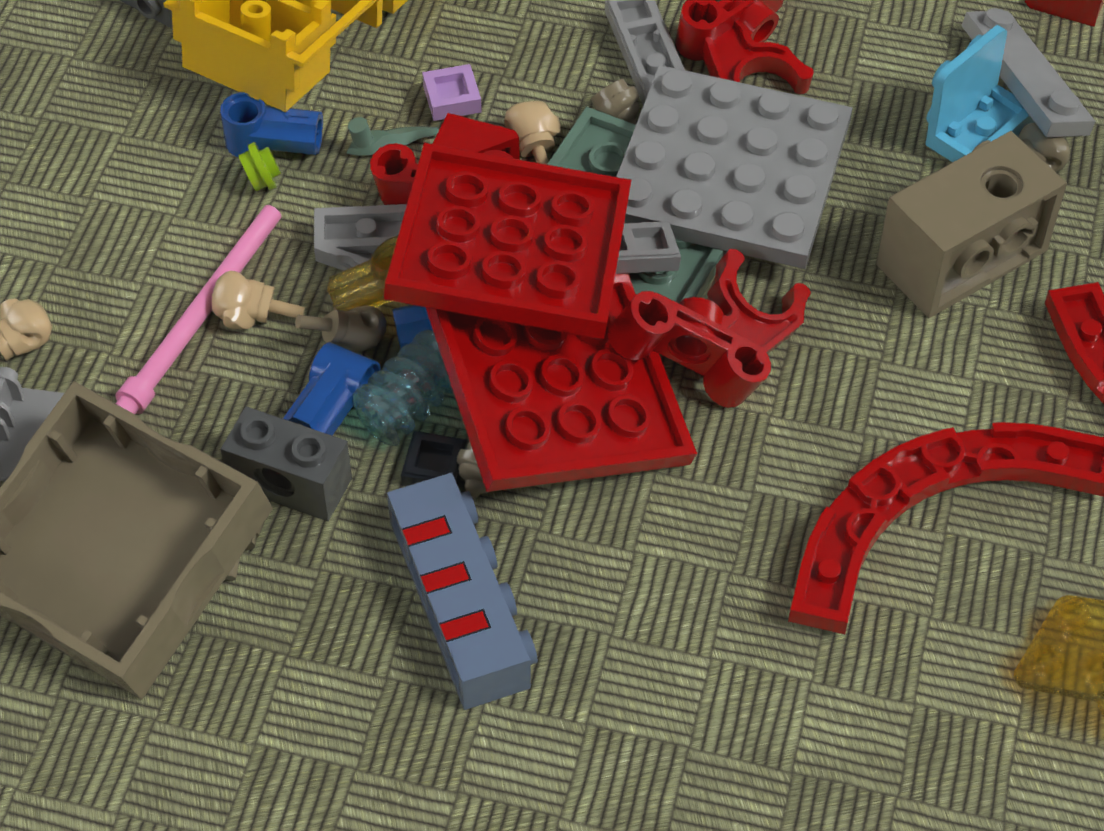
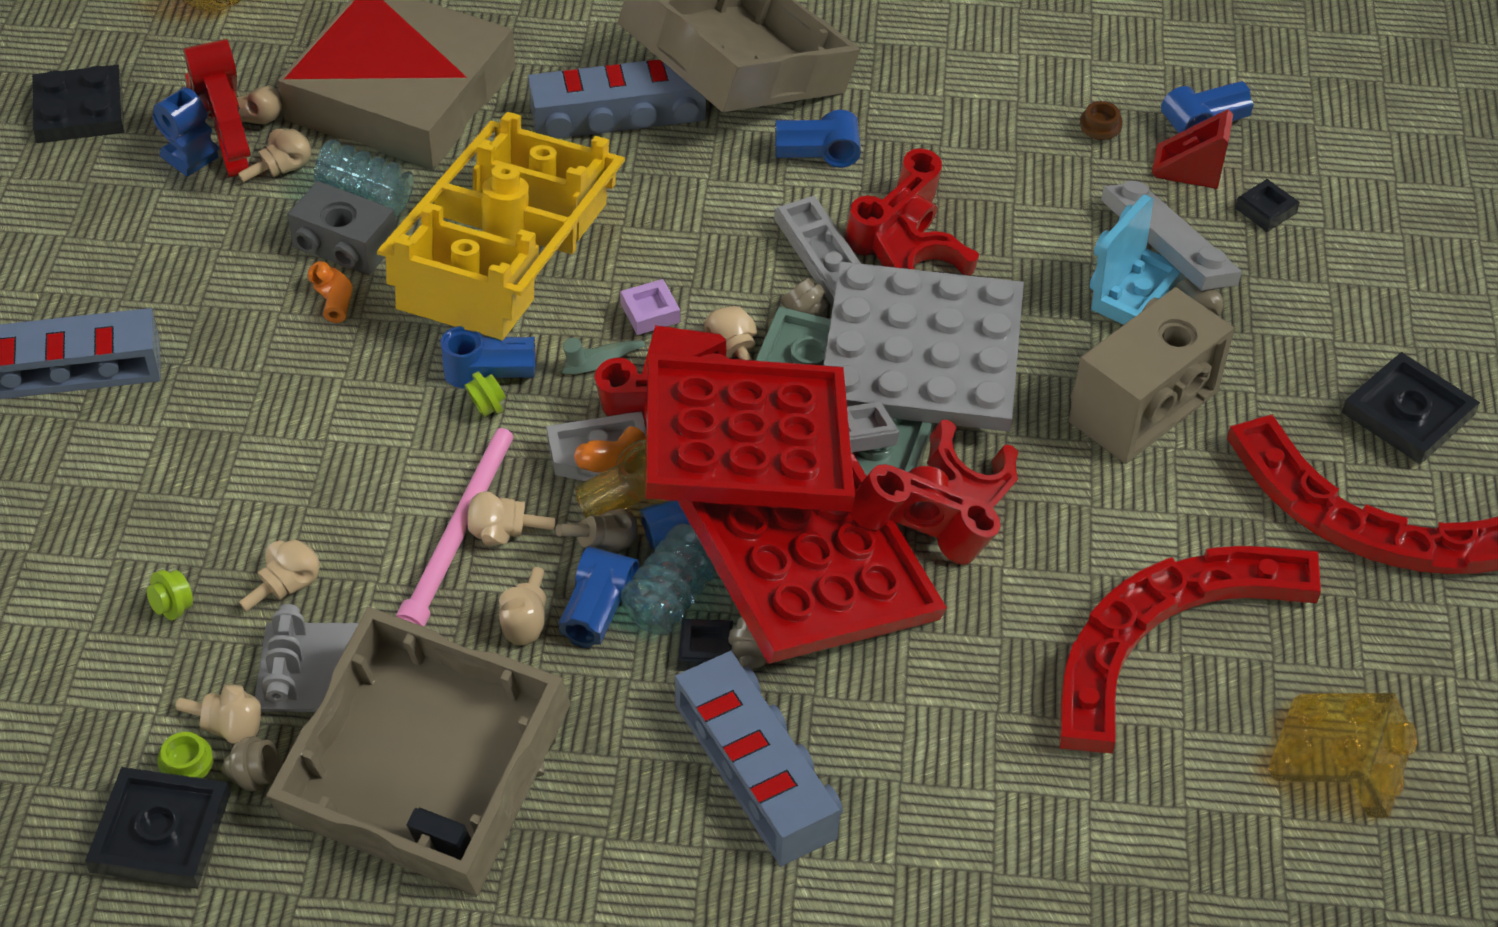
camera: 10 degrees left, 5 degrees down
(109, 629) = (446, 834): none -> black tile
(131, 39) = (334, 288): none -> orange arm
(250, 391) = (523, 610): none -> tan piece
(290, 462) = (587, 657): dark grey brick -> none
(359, 245) = (602, 455): none -> orange arm

